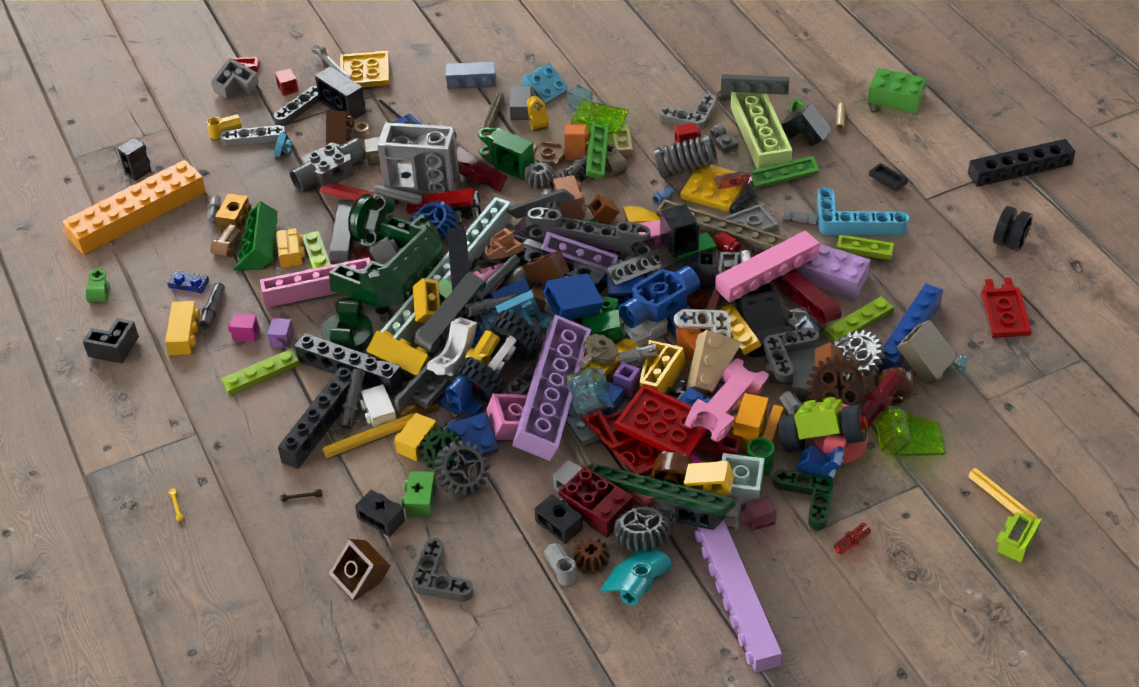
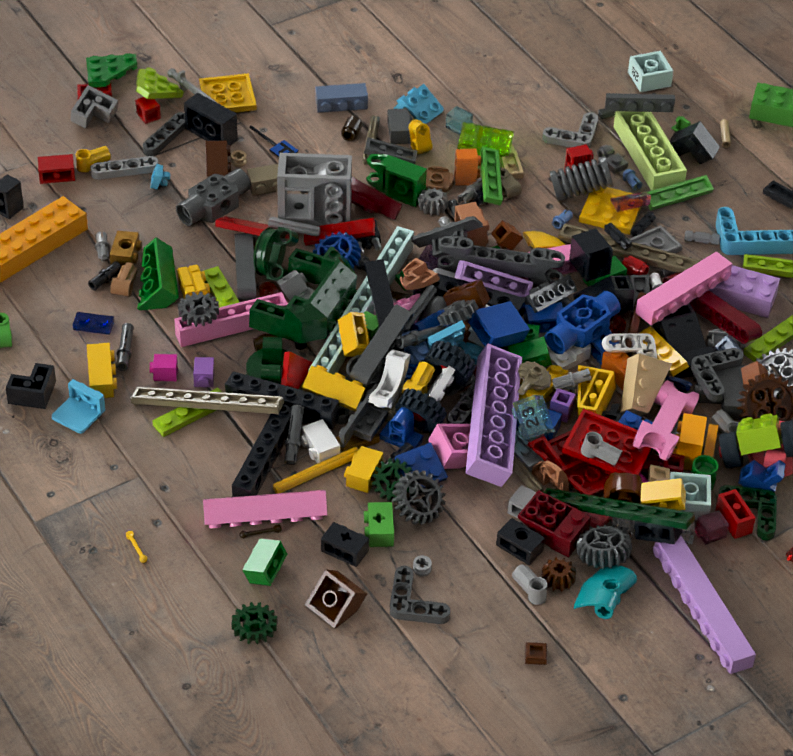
camera: 10 degrees left, 0 degrees up
(154, 364) = (81, 407): none -> medium azure bracket
(188, 135) = (56, 168): none -> red brick
(208, 236) = (104, 276): none -> black pin
(256, 43) = (106, 68): none -> green plate
(271, 590) = (254, 623): none -> dark green gear
(276, 361) = (207, 400): none -> dark tan tile
(282, 271) = (200, 309): none -> dark grey gear
(295, 527) = (265, 562): none -> green brick
(296, 59) = (156, 86): none -> lime plate
(307, 471) = (265, 507): none -> bright pink brick
(363, 333) = (294, 370): none -> red tile
(450, 534) = (422, 571): none -> light grey bush
(474, 103) = (351, 128): none -> dark brown brick
(517, 128) = (380, 147): none -> dark grey plate
(530, 281) = (457, 311): none -> dark grey gear
(553, 638) = (536, 653): none -> reddish brown tile
(600, 449) = (550, 472): none -> nougat brick
(646, 424) = (594, 446): none -> light grey piece
(711, 454) = (658, 473): none -> tan plate
(713, 213) = (618, 236): none -> black axle
(738, 157) = (631, 178): none -> medium blue pin
(754, 364) = (680, 384): none -> dark blue piece
(774, 55) = (650, 71): none -> light aqua brick
(785, 500) = (736, 513): none -> red brick

